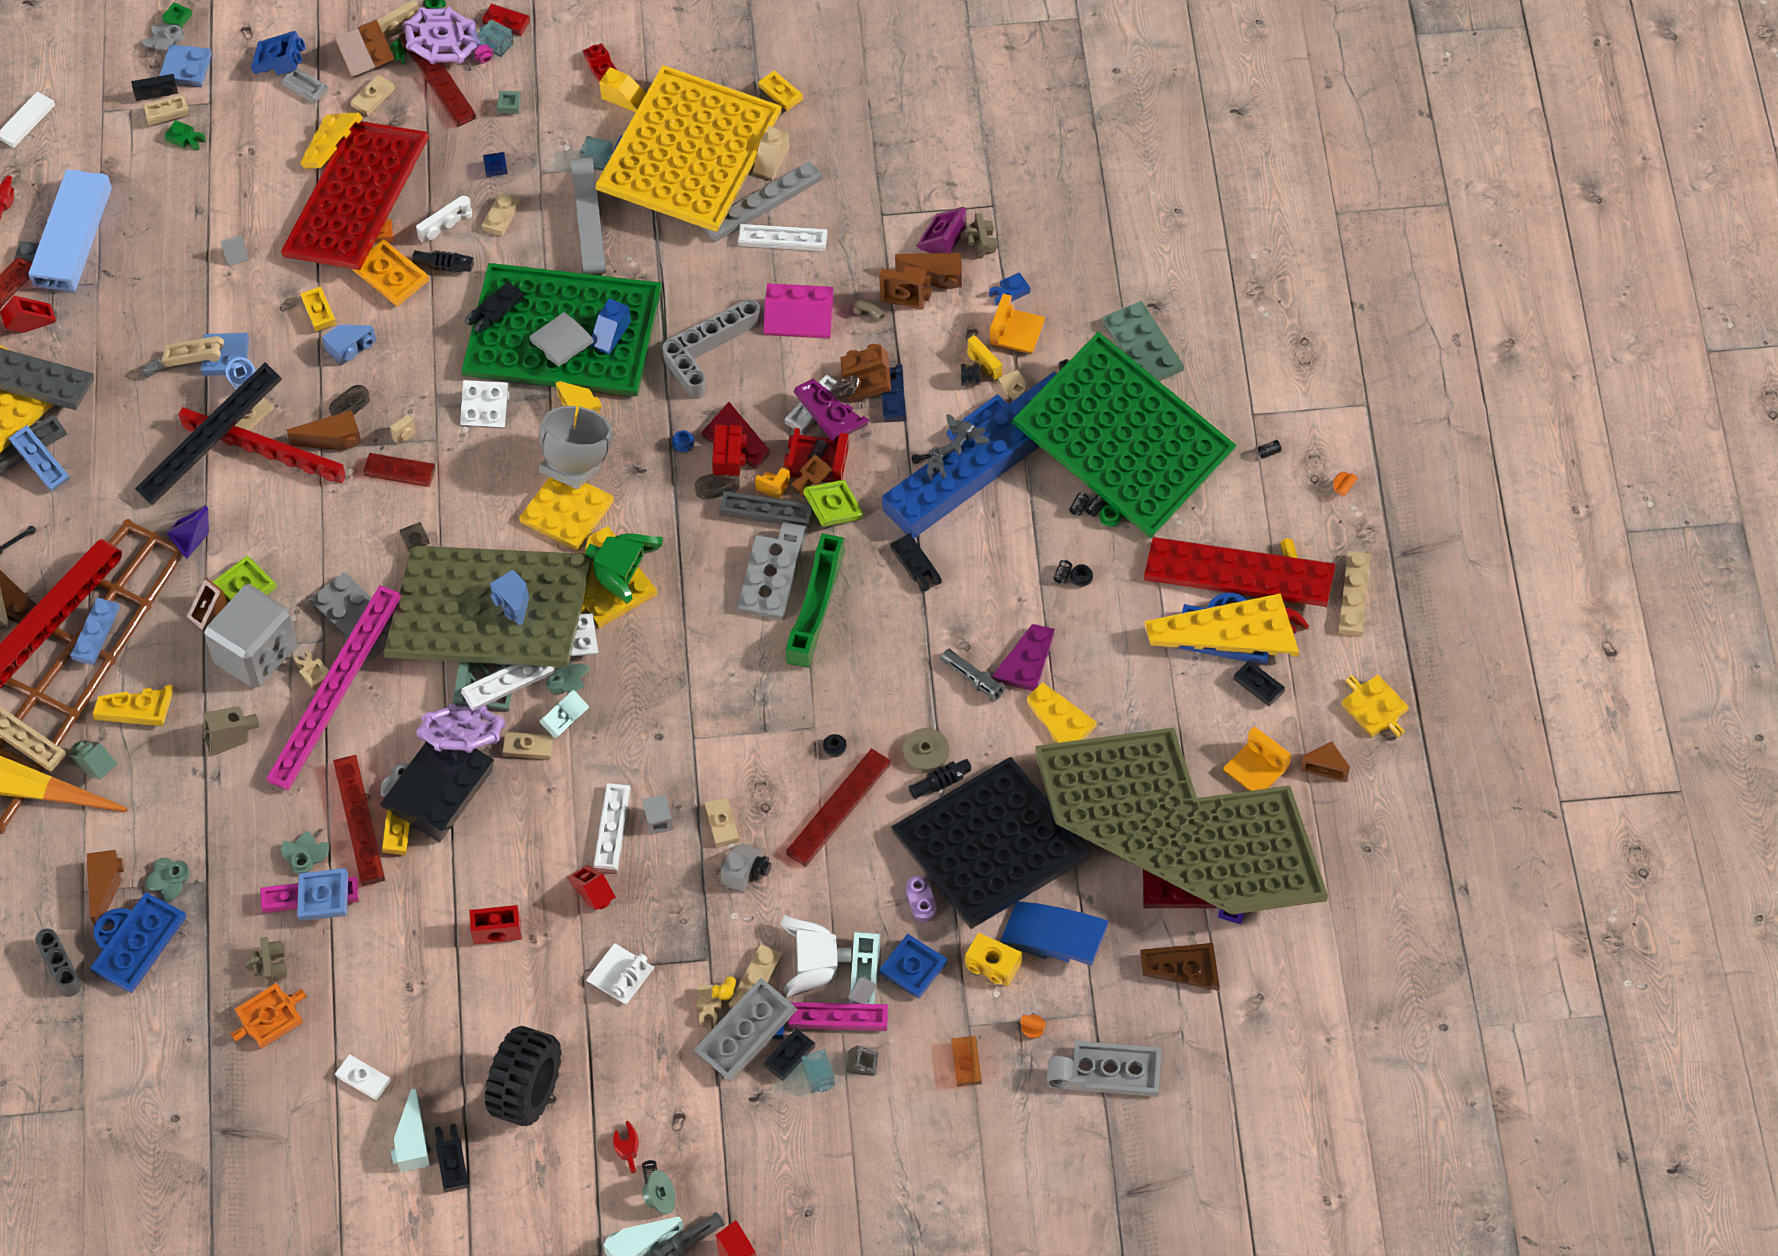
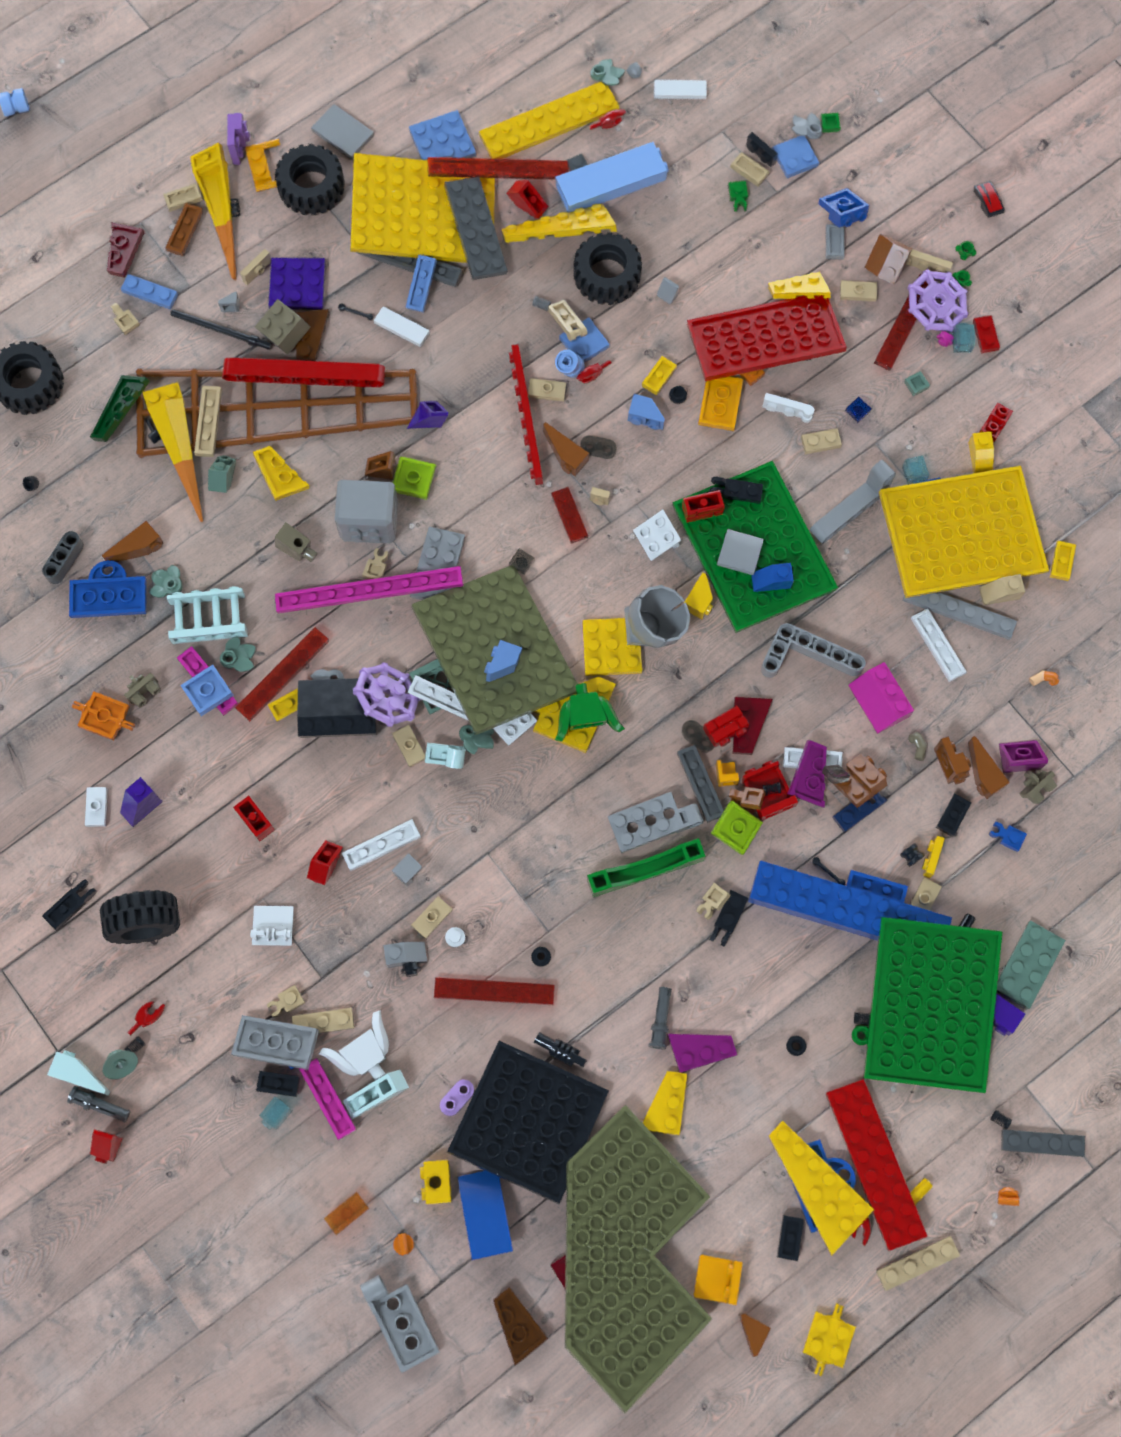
camera: 55 degrees right, 15 degrees up
(68, 506) = (401, 326): none -> white tile
(88, 293) = (563, 224): none -> yellow wing
(95, 631) = (316, 409): medium blue plate -> none
(162, 264) = (607, 248): none -> black tyre
(208, 433) = (507, 375): black plate -> none
(250, 874) = (217, 630): none -> light aqua fence
(266, 355) = (592, 372): none -> red hand
(351, 305) = (678, 395): none -> black plate
(393, 1022) = (138, 802): none -> dark purple slope
(398, 51) = (903, 282): green plate -> none
(410, 1138) = (67, 869): light aqua slope -> none
(444, 260) = (755, 430): black hinge -> none
(490, 341) = (703, 506): none -> red brick
(683, 441) = (719, 689): blue plate -> none
(726, 990) = (299, 1009): yellow arm -> none
(758, 811) = (455, 937): none -> white plate
(861, 1061) = (305, 1137): clear smoke slope -> none
(862, 990) = (353, 1104): light grey slope -> none
(879, 171) = (1049, 676): none -> arm
(889, 561) = (715, 899): none -> tan plate
(913, 966) = (398, 1127): blue plate -> none
(925, 760) = (581, 1034): dark tan plate -> none
(957, 319) = (953, 815): none -> black plate
(965, 431) = (810, 883): dark grey piece -> none
(1015, 328) = (976, 862): light orange bracket -> none
(1066, 569) = (784, 1029): black piece -> none
(1081, 501) = (860, 1004): black piece -> none
(1181, 384) = (1006, 1016): none -> dark purple slope
(1314, 429) = (1043, 1143): none -> dark grey plate

